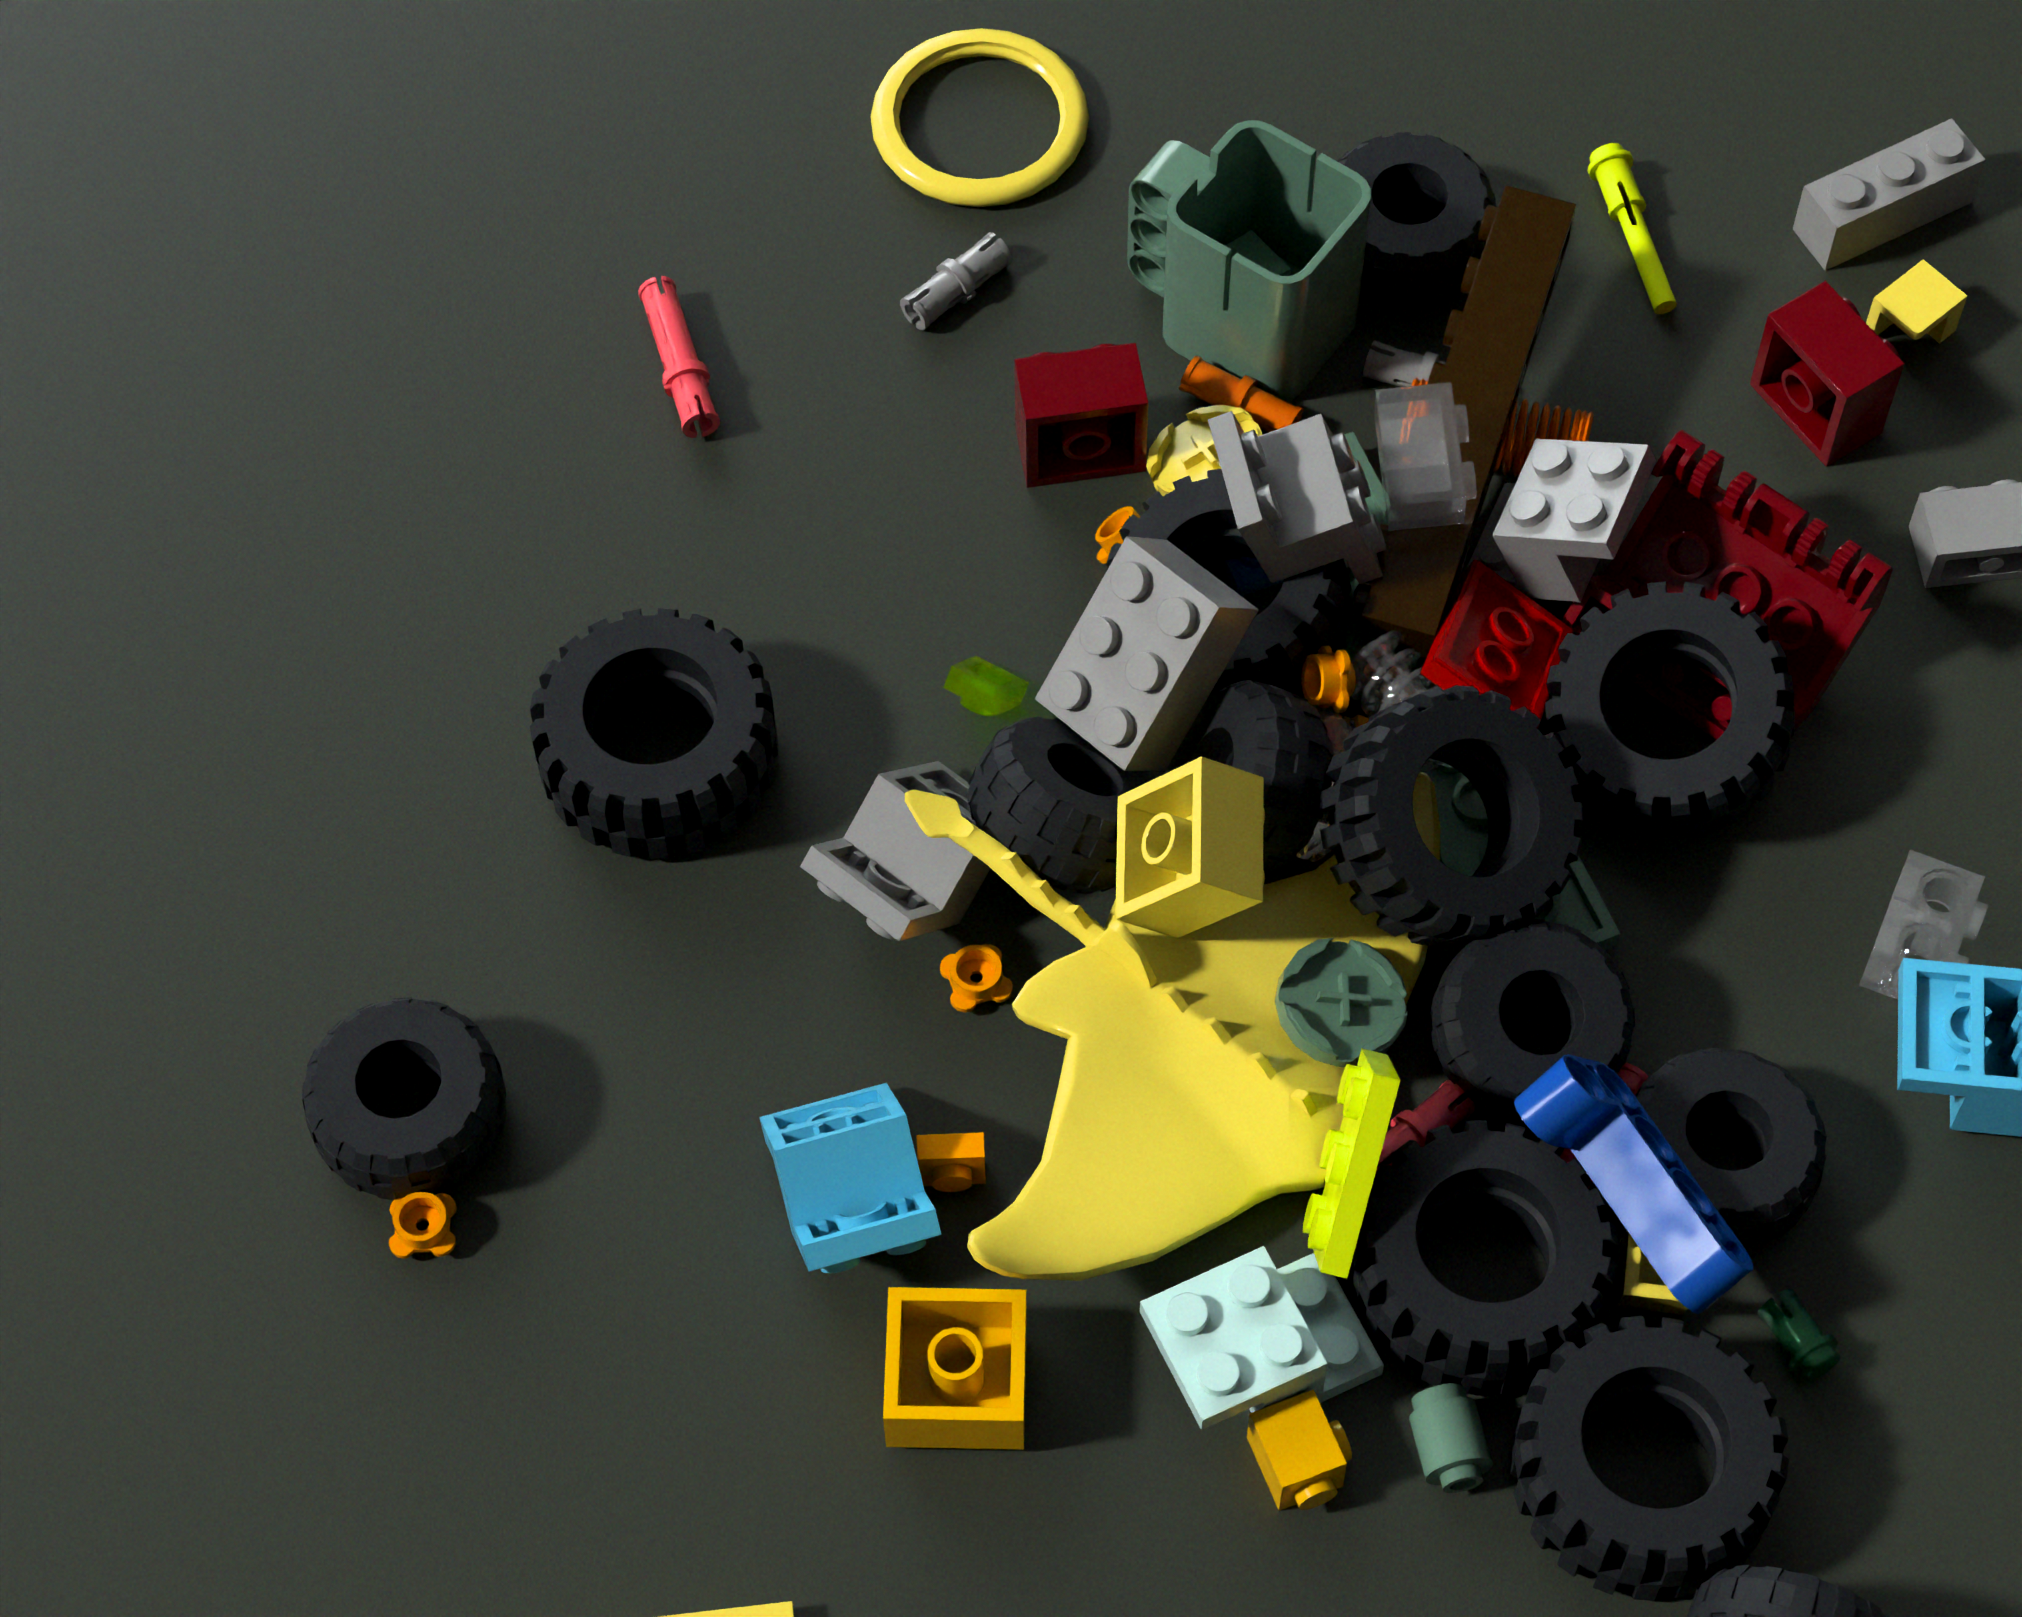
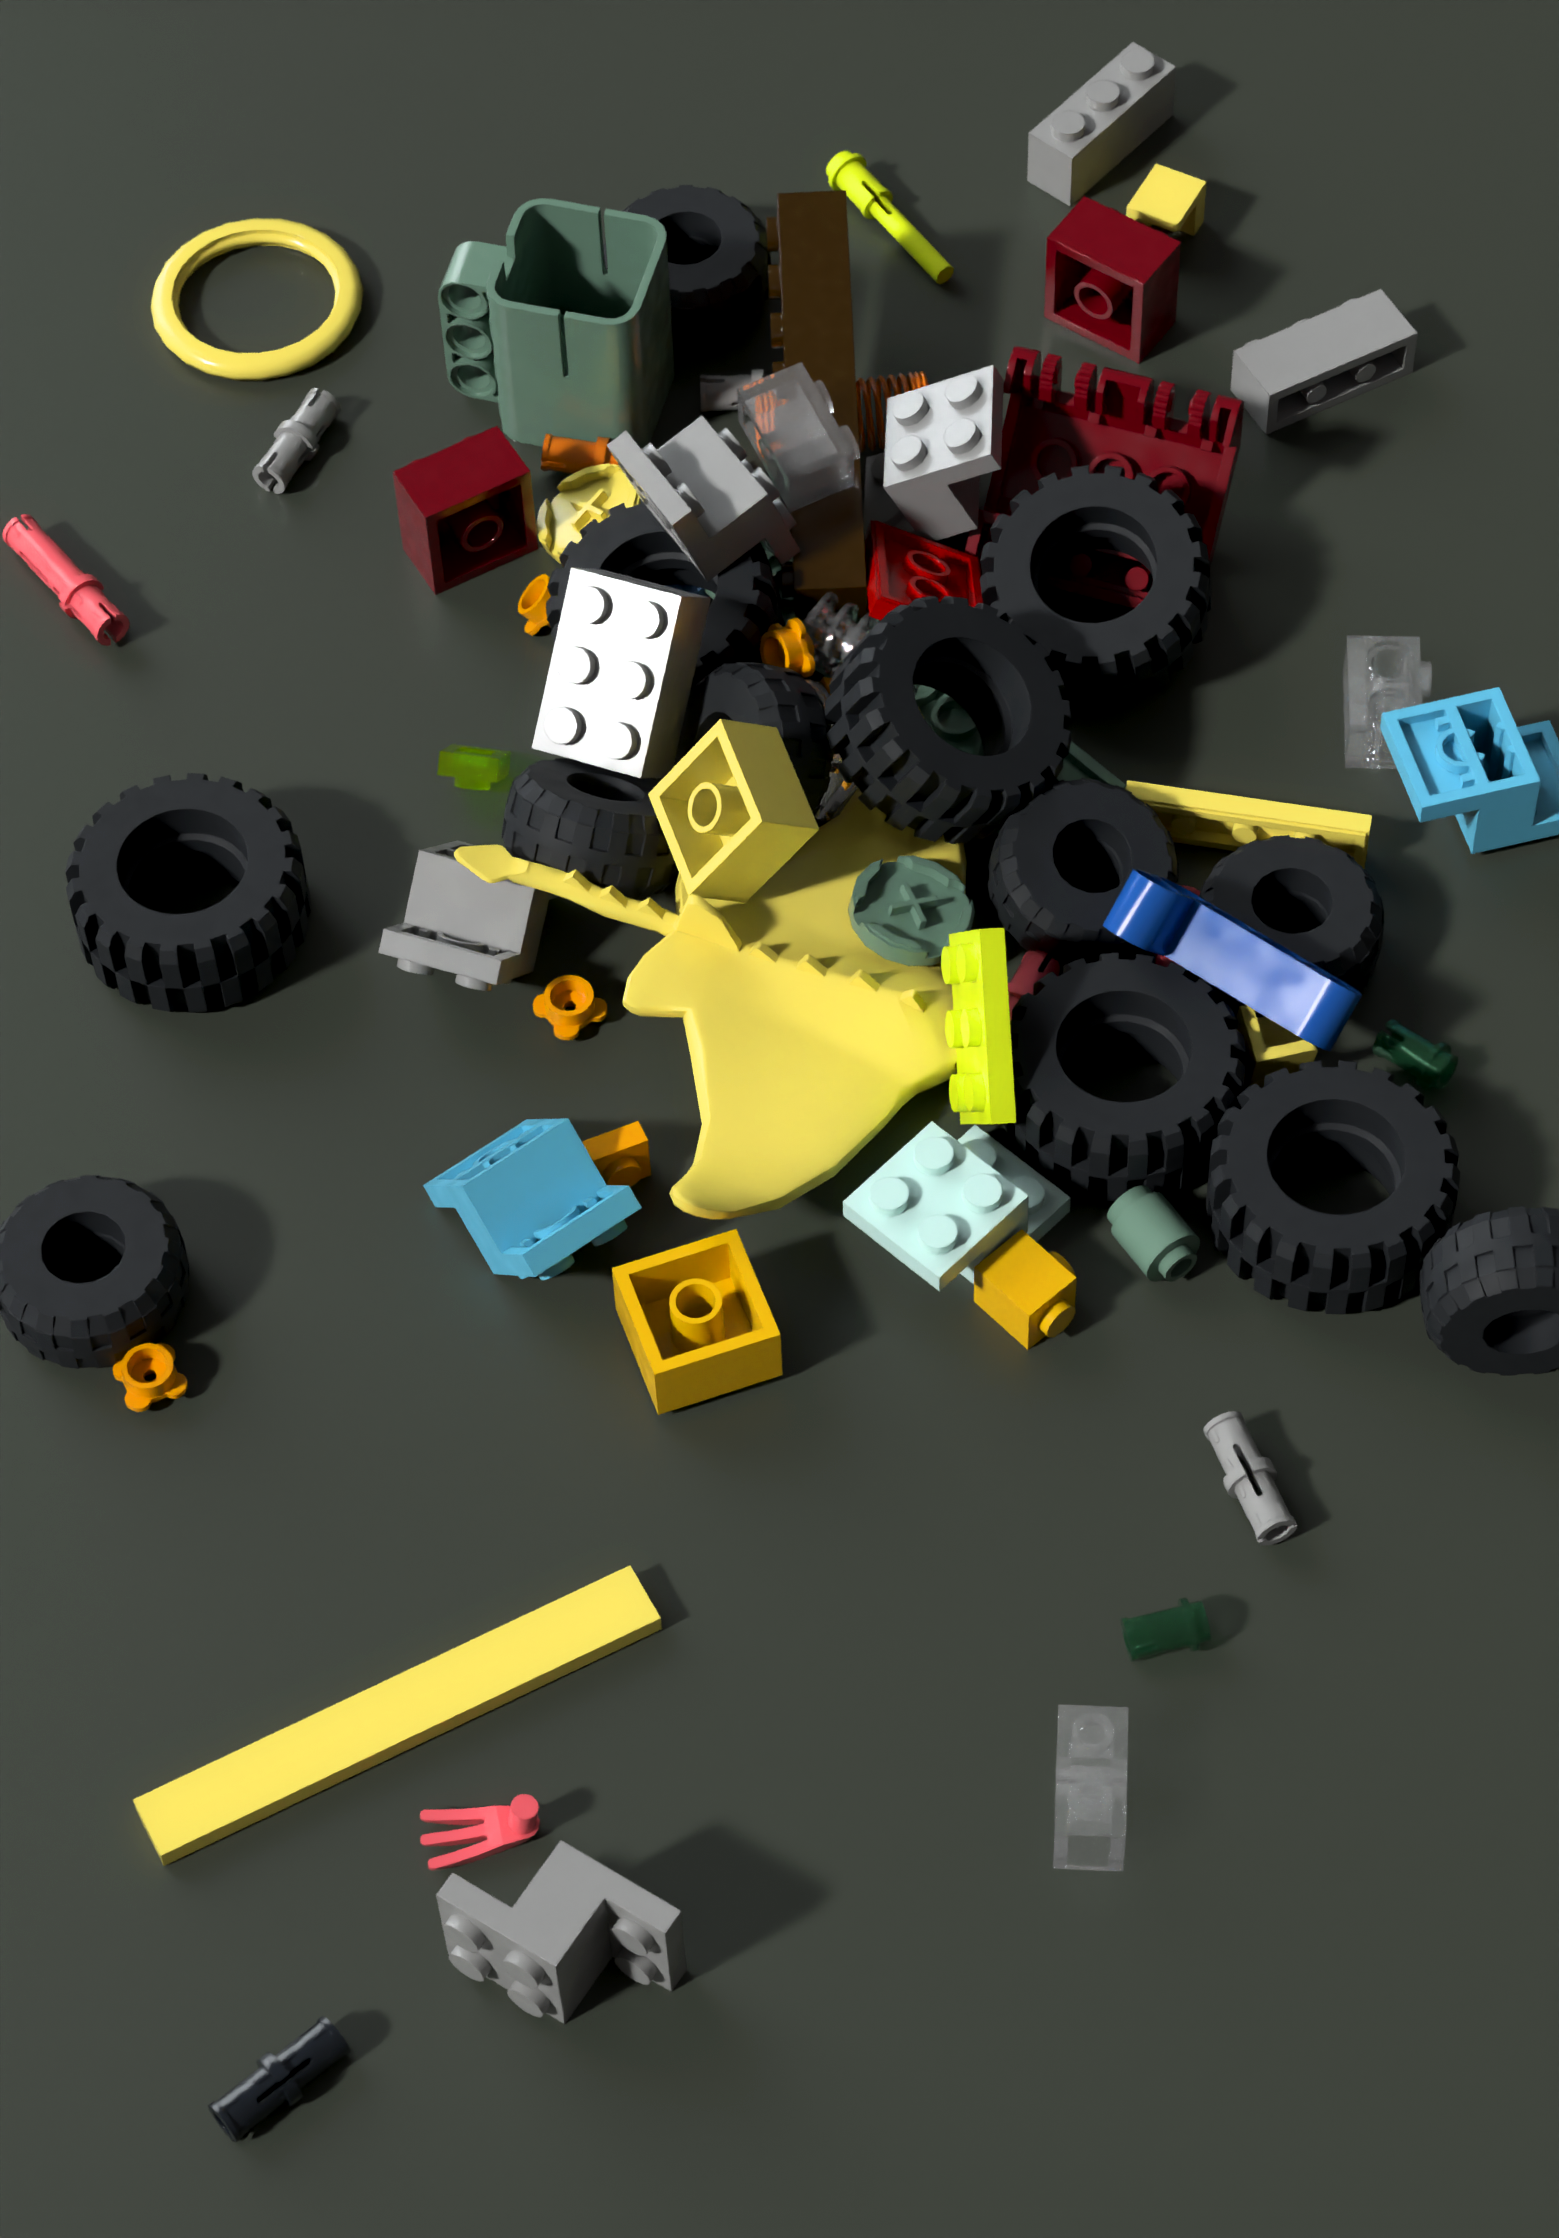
camera: 20 degrees left, 5 degrees down
(1729, 1019) = (1233, 821): none -> light yellow tile

